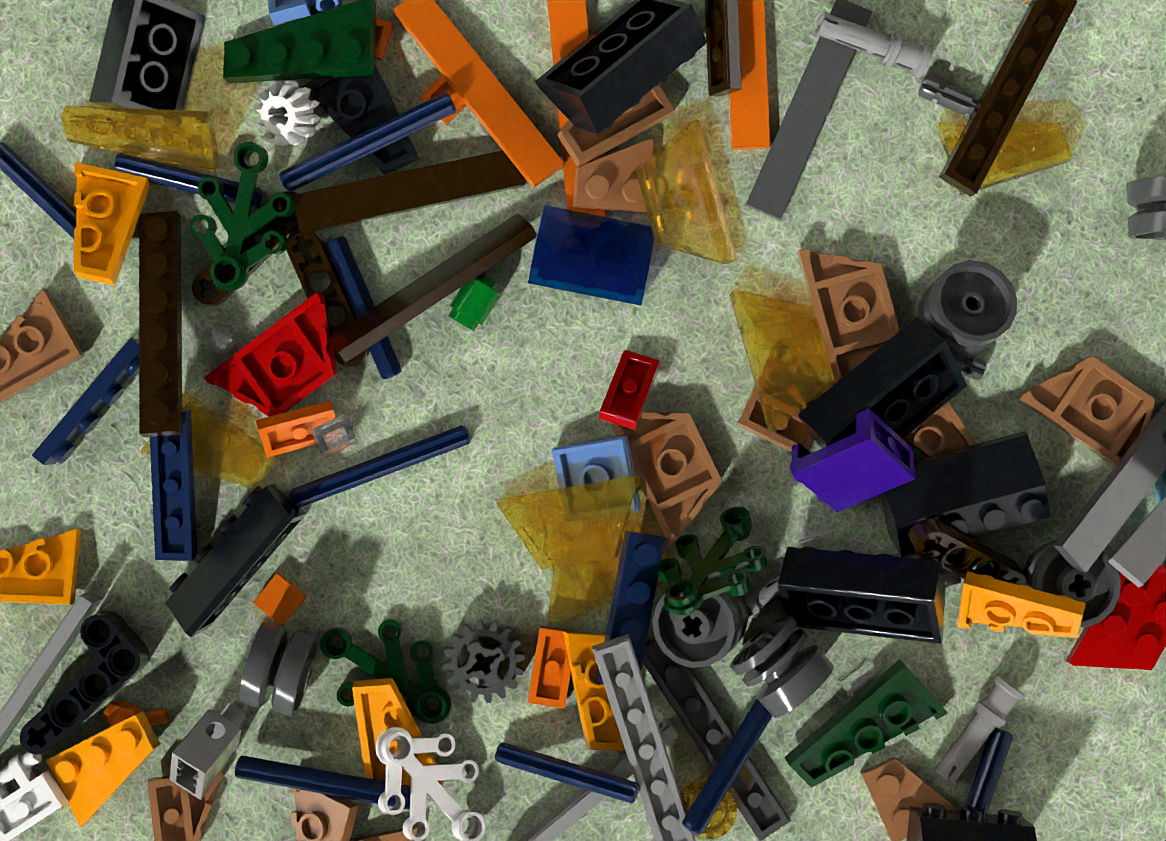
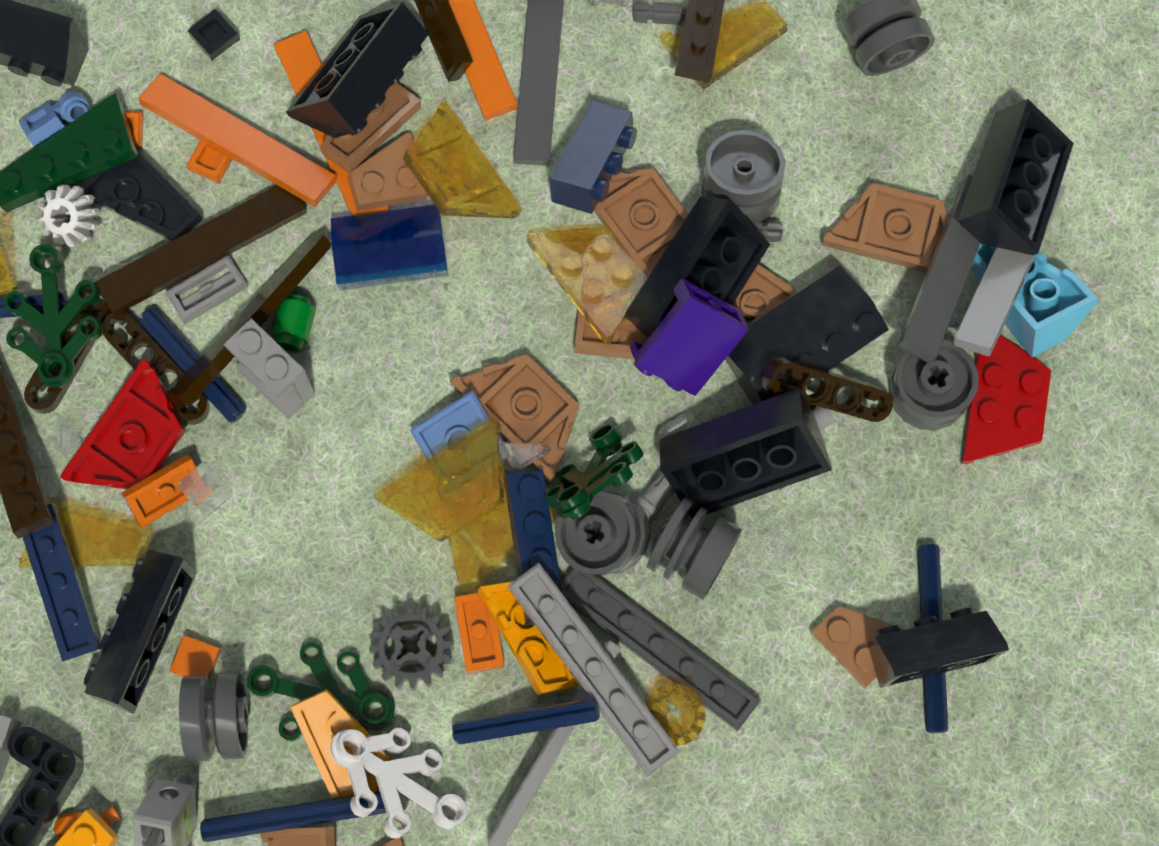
camera: 20 degrees left, 15 degrees down
(367, 142) = (149, 215): dark blue axle -> none
(380, 466) = (254, 502): dark blue axle -> none
(404, 248) = (212, 301): none -> light grey tile
(434, 348) = (270, 368): none -> light grey window
(629, 389) = (463, 351): red plate -> none
(652, 516) = (524, 454): none -> clear slope
(727, 769) = (679, 663): dark blue axle -> none
(826, 236) = (592, 157): none -> dark blue brick
(878, 713) = (802, 572): dark green wing -> none
(989, 714) = (908, 533): light grey pin -> none
(1009, 604) = (882, 416): light orange wing -> none

